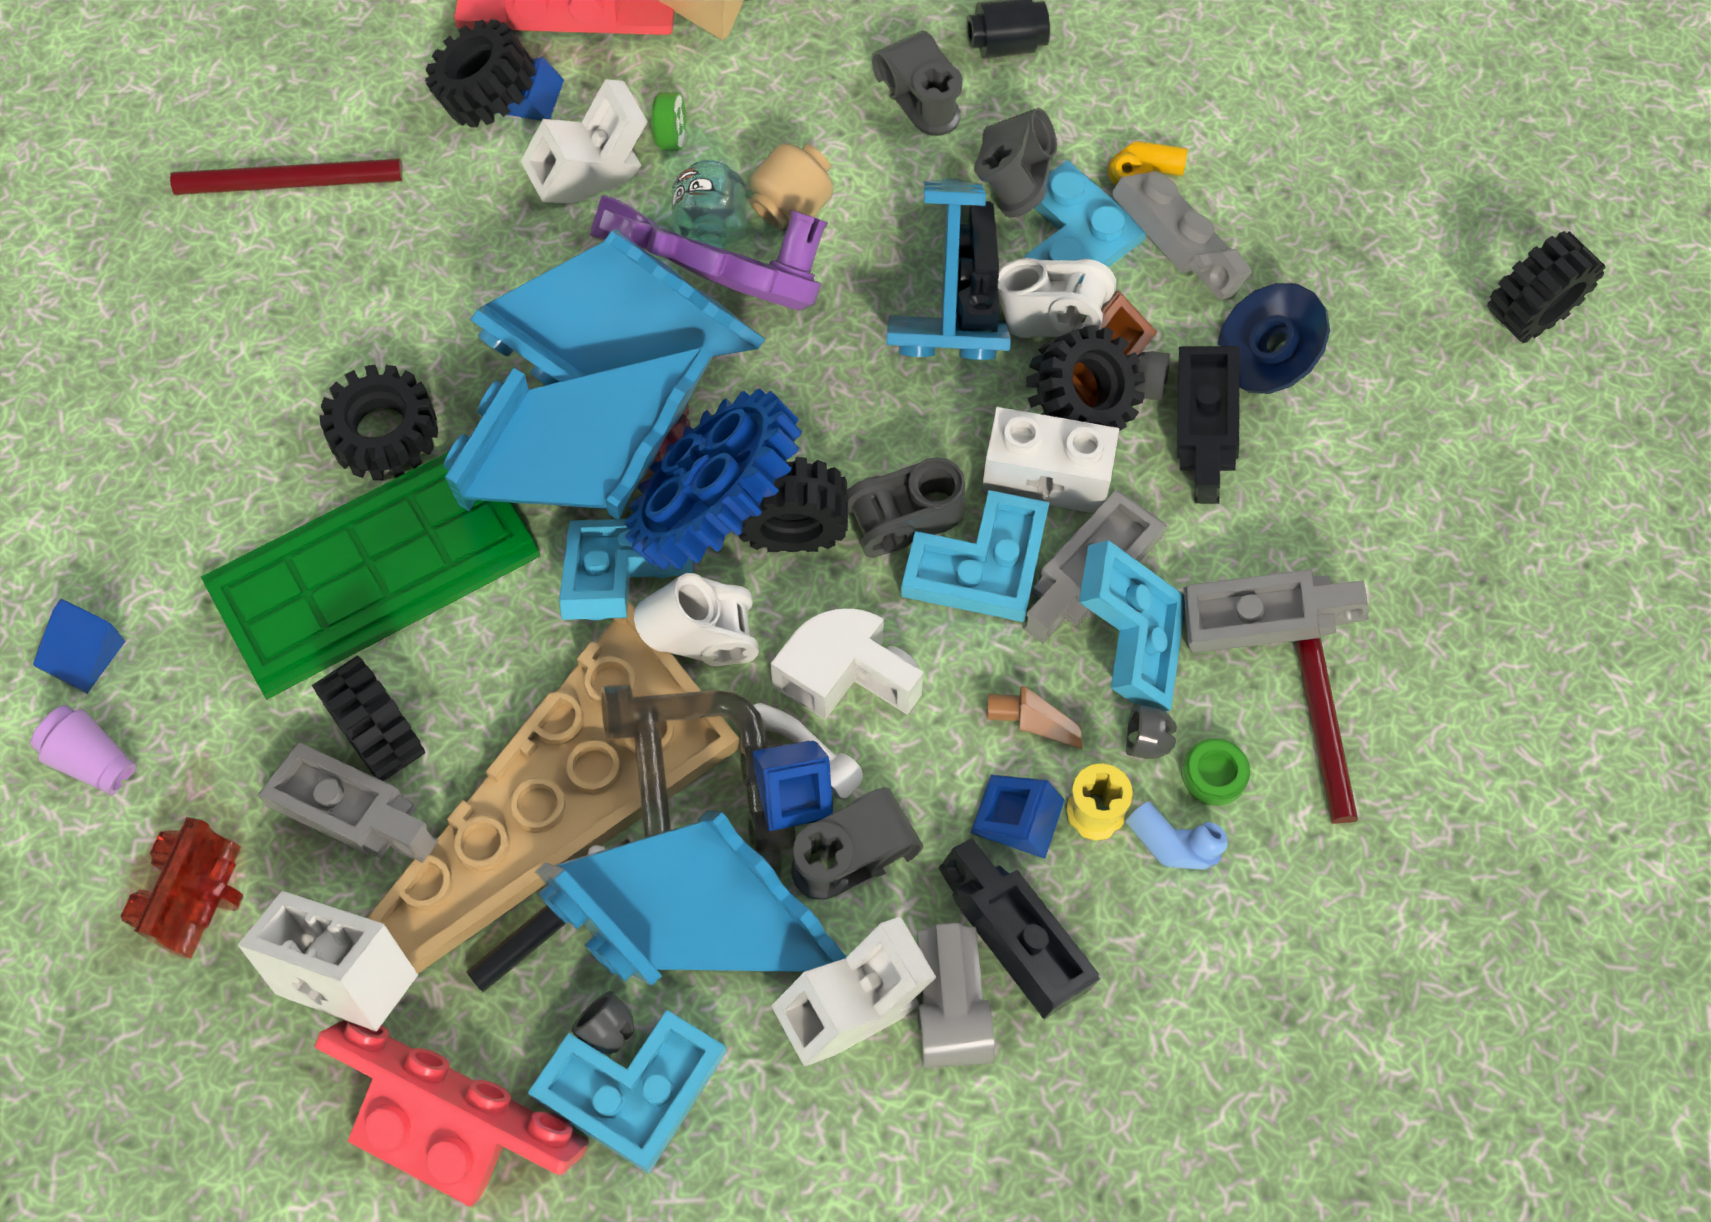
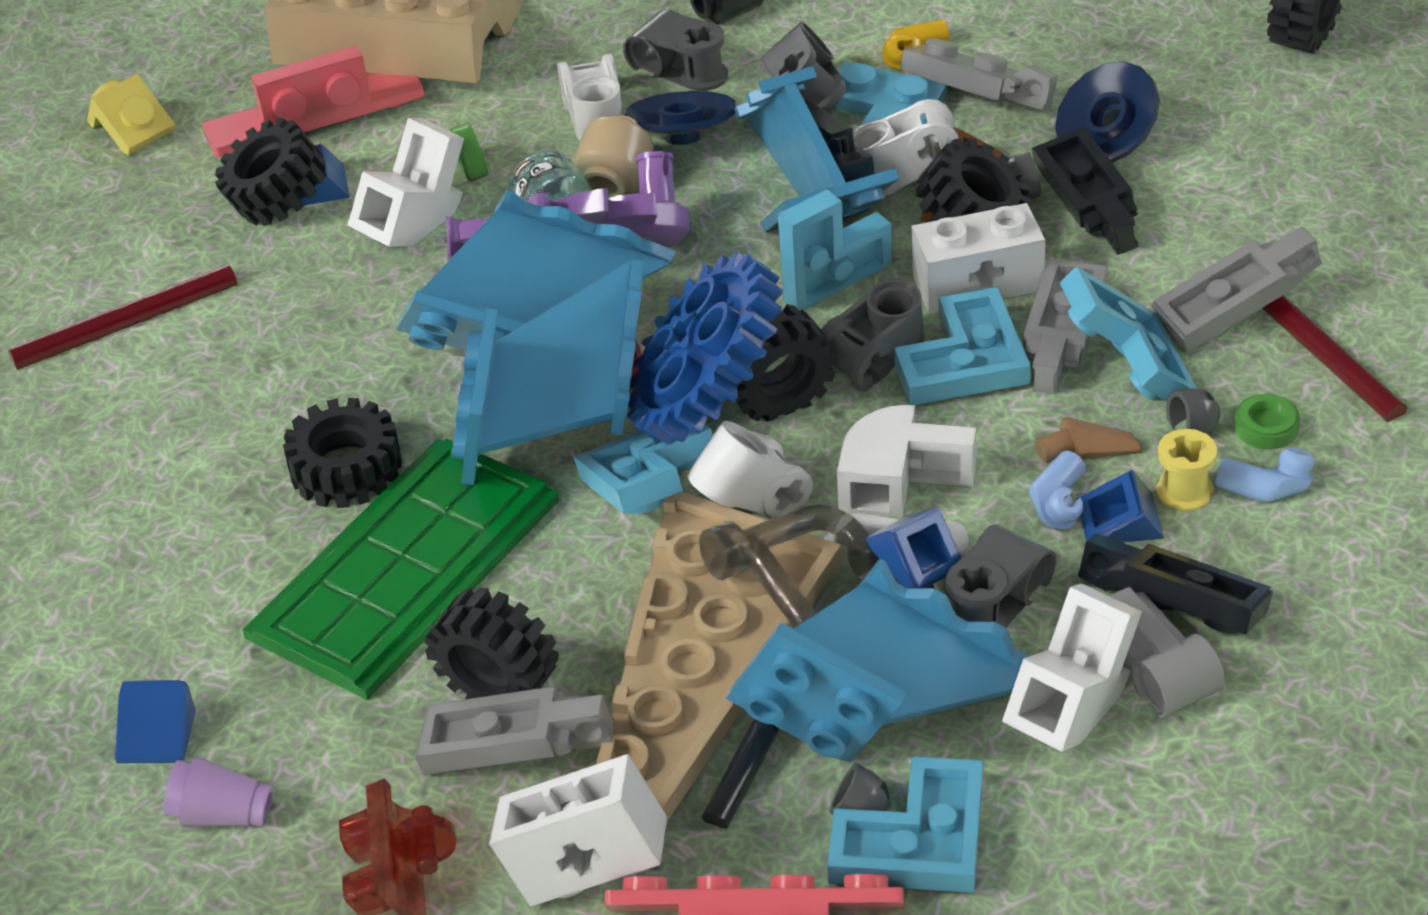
camera: 20 degrees left, 20 degrees down
(814, 102) = (590, 91): none -> white piece
(879, 158) = (682, 114): none -> dark blue dish
(902, 398) = (824, 256): none -> medium azure plate
(968, 761) = (1052, 491): none -> light blue arm

